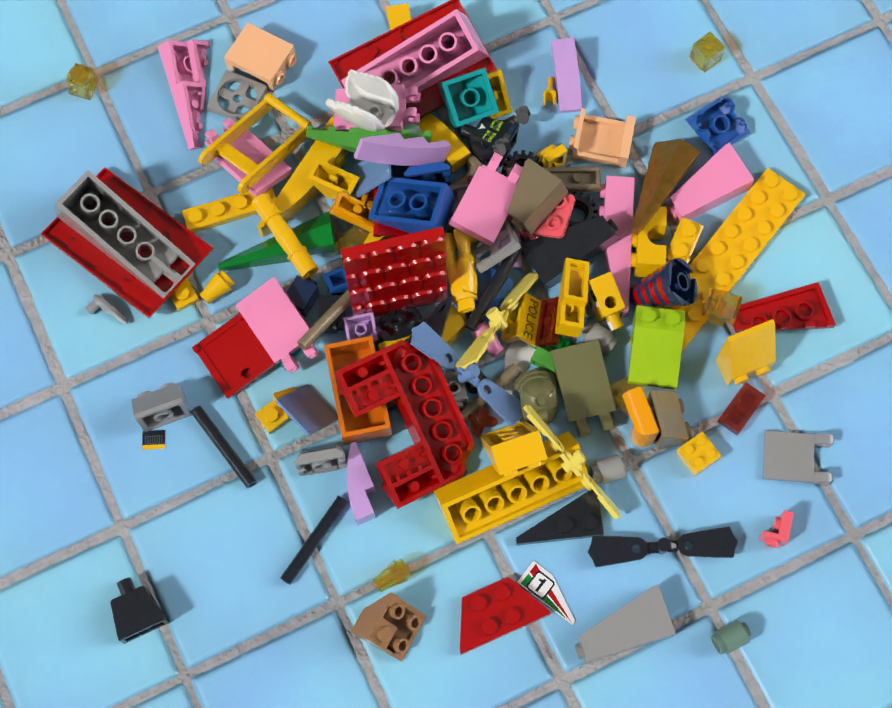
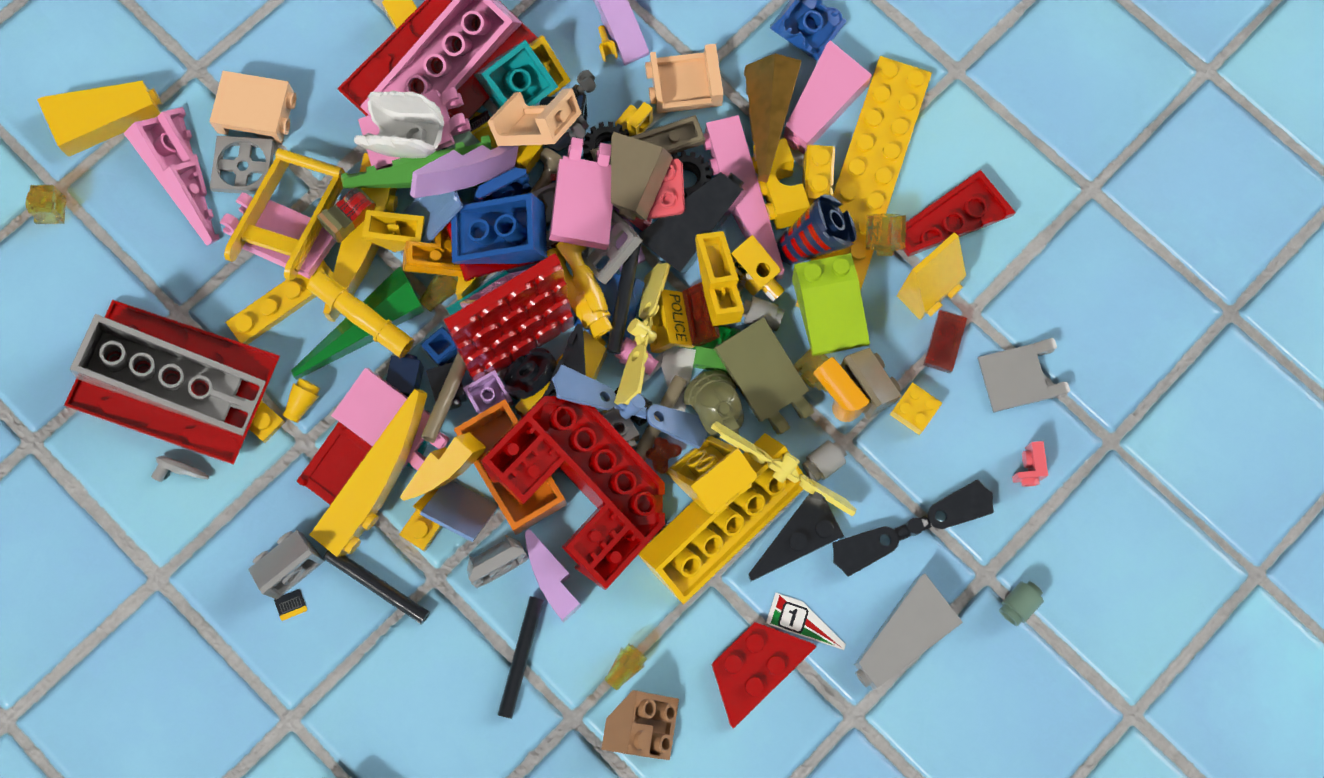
camera: 25 degrees left, 5 degrees up
(143, 26) = (97, 114): none -> yellow slope
(248, 364) = (371, 482): none -> yellow slope
(301, 157) = (346, 214): none -> leg
(306, 370) = (444, 465): none -> yellow slope
(428, 121) = (479, 122): none -> black sticker
(458, 130) = (534, 125): none -> light nougat panel

